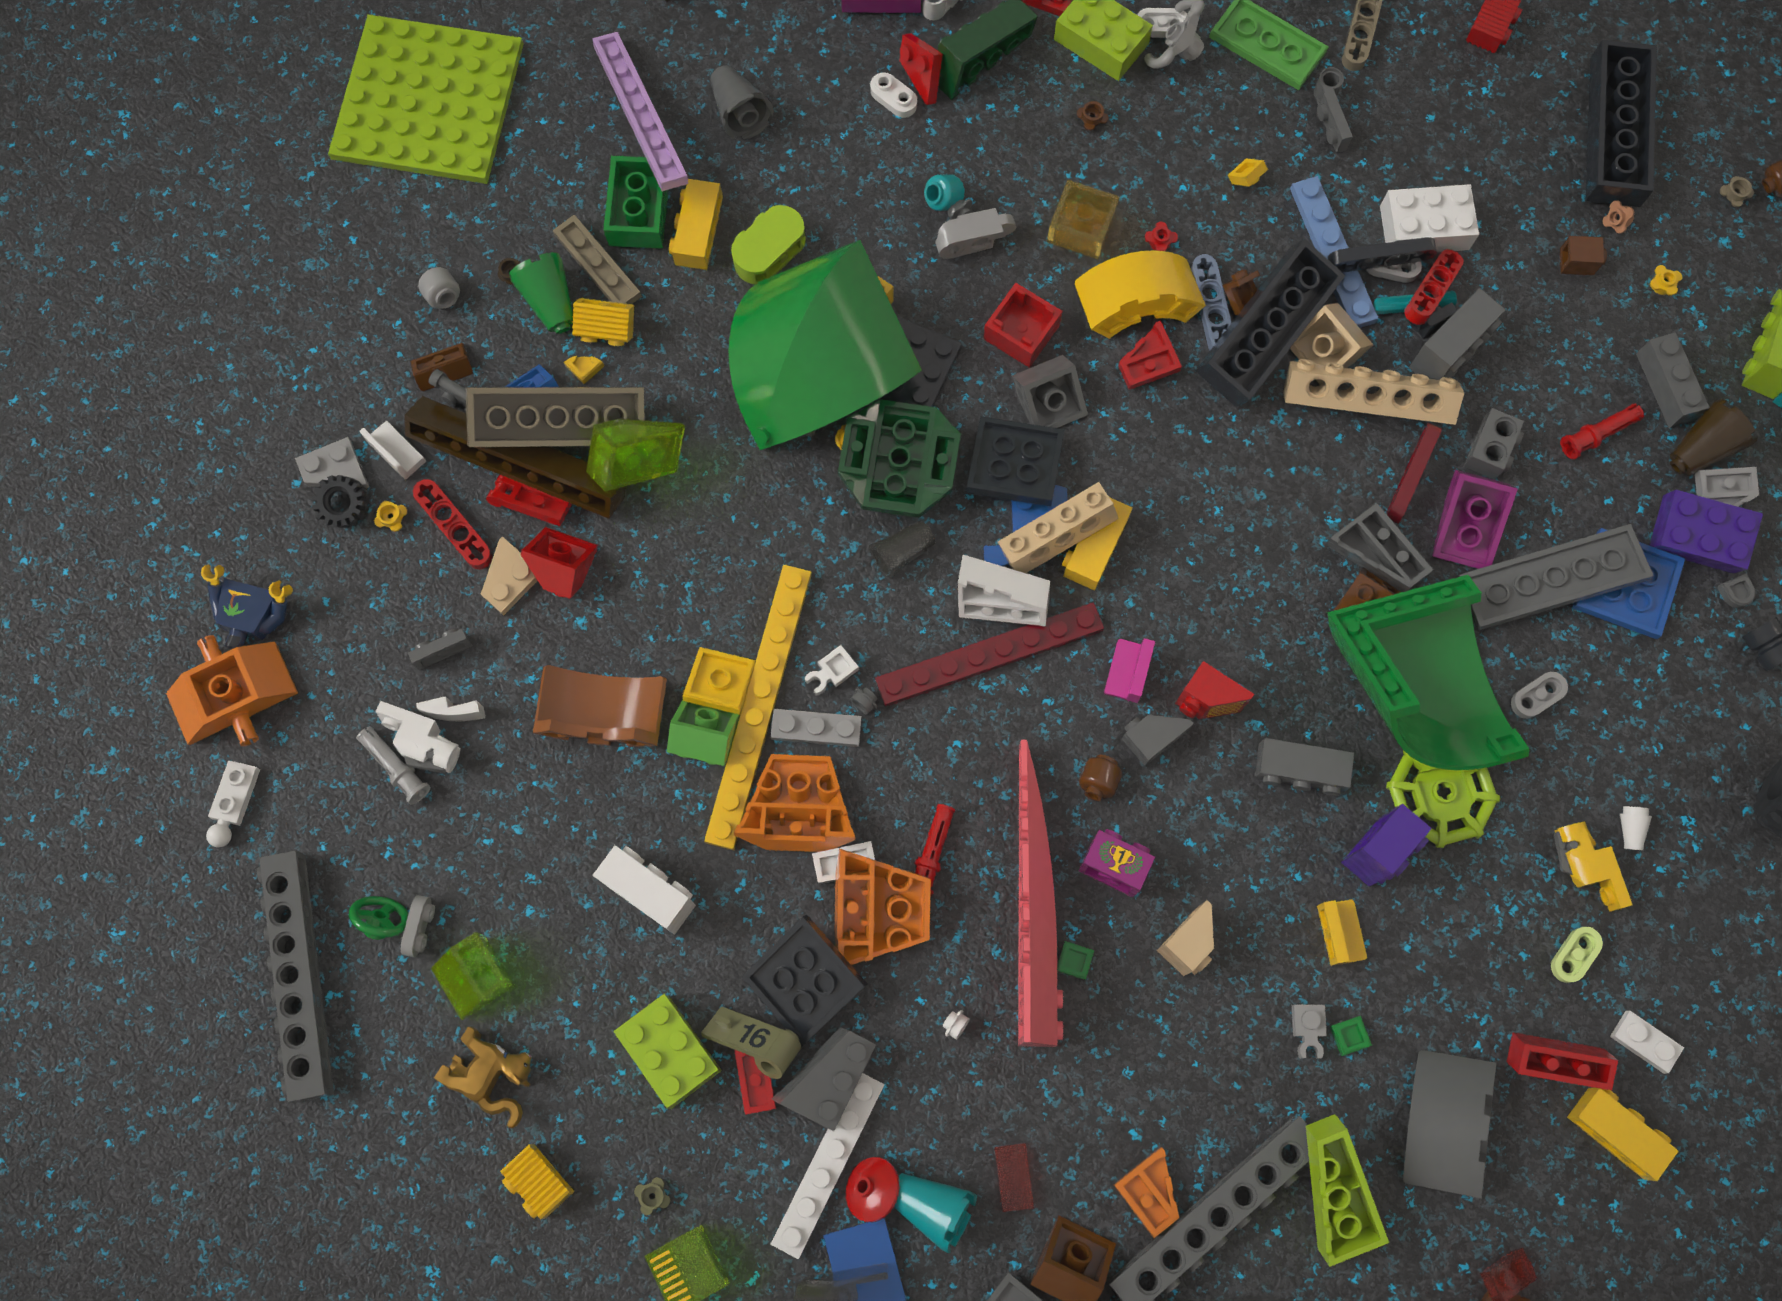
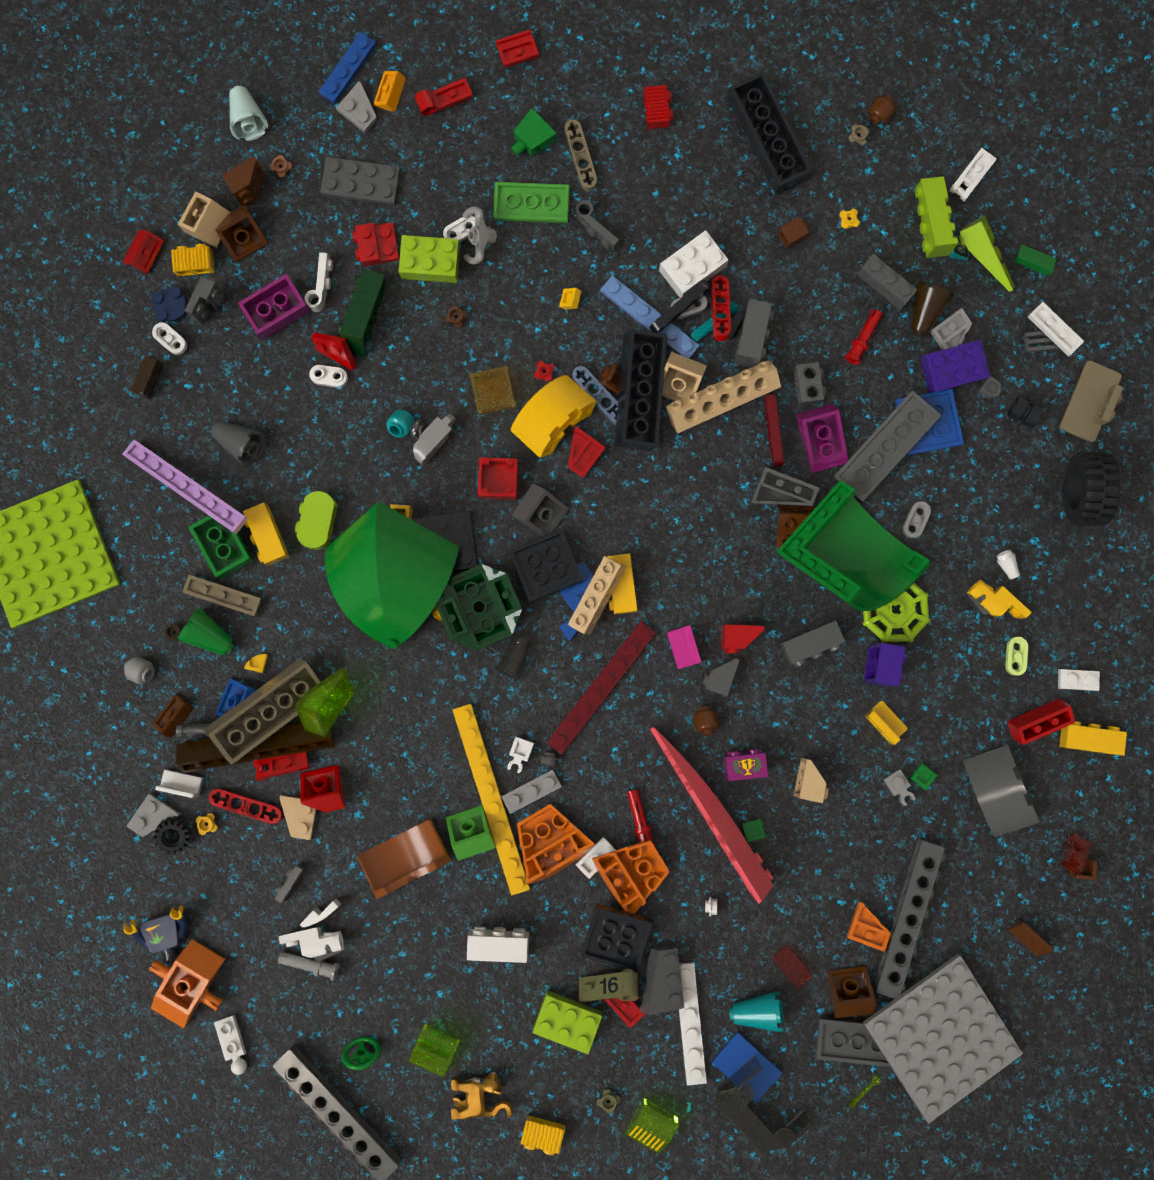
camera: 30 degrees left, 10 degrees up
(414, 936) = (382, 1037): light grey plate -> none
(603, 320) = (251, 630): yellow brick -> none
(719, 680) = (460, 800): yellow plate -> none
(881, 1192) = (728, 1020): red dish -> none
(1001, 593) = (588, 651): white wedge -> none
(1342, 1200) = (971, 873): lime wedge -> none
(1626, 217) = (802, 190): nougat plate -> none

